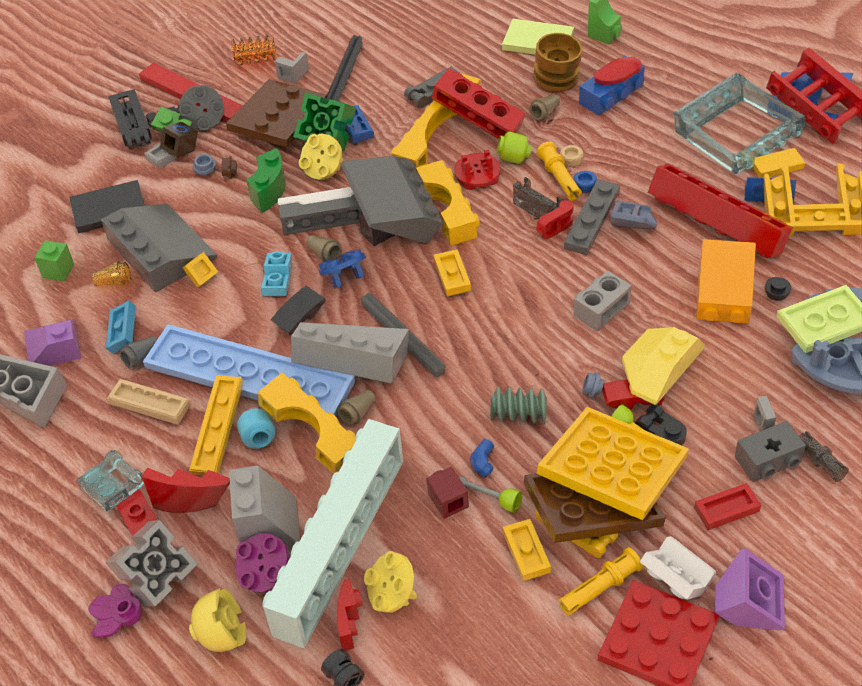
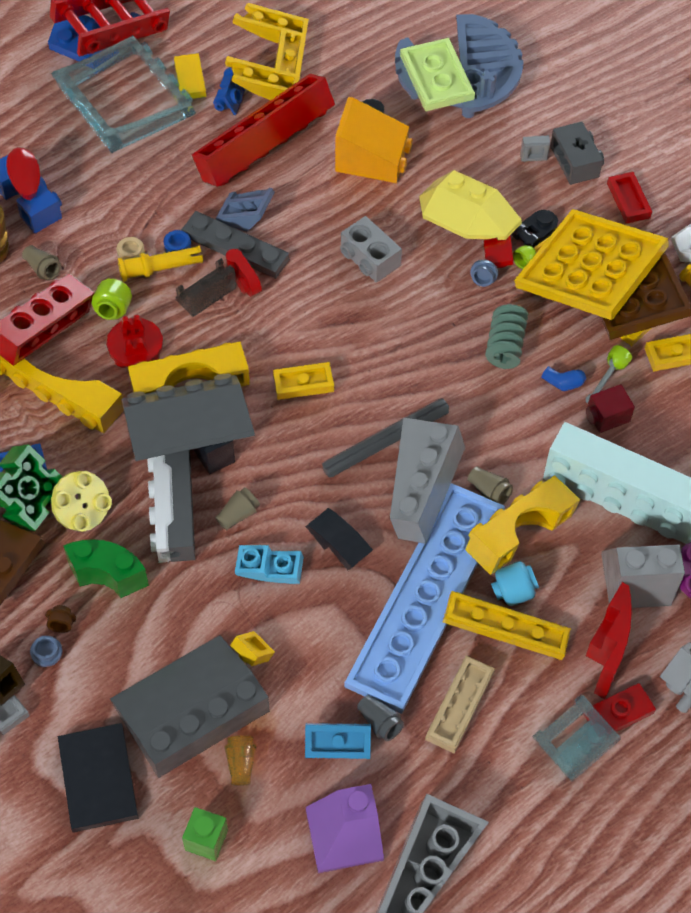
camera: 90 degrees left, 10 degrees up
(349, 259) = (278, 485): blue plate -> none
(823, 457) = (588, 116): clear smoke pin -> none

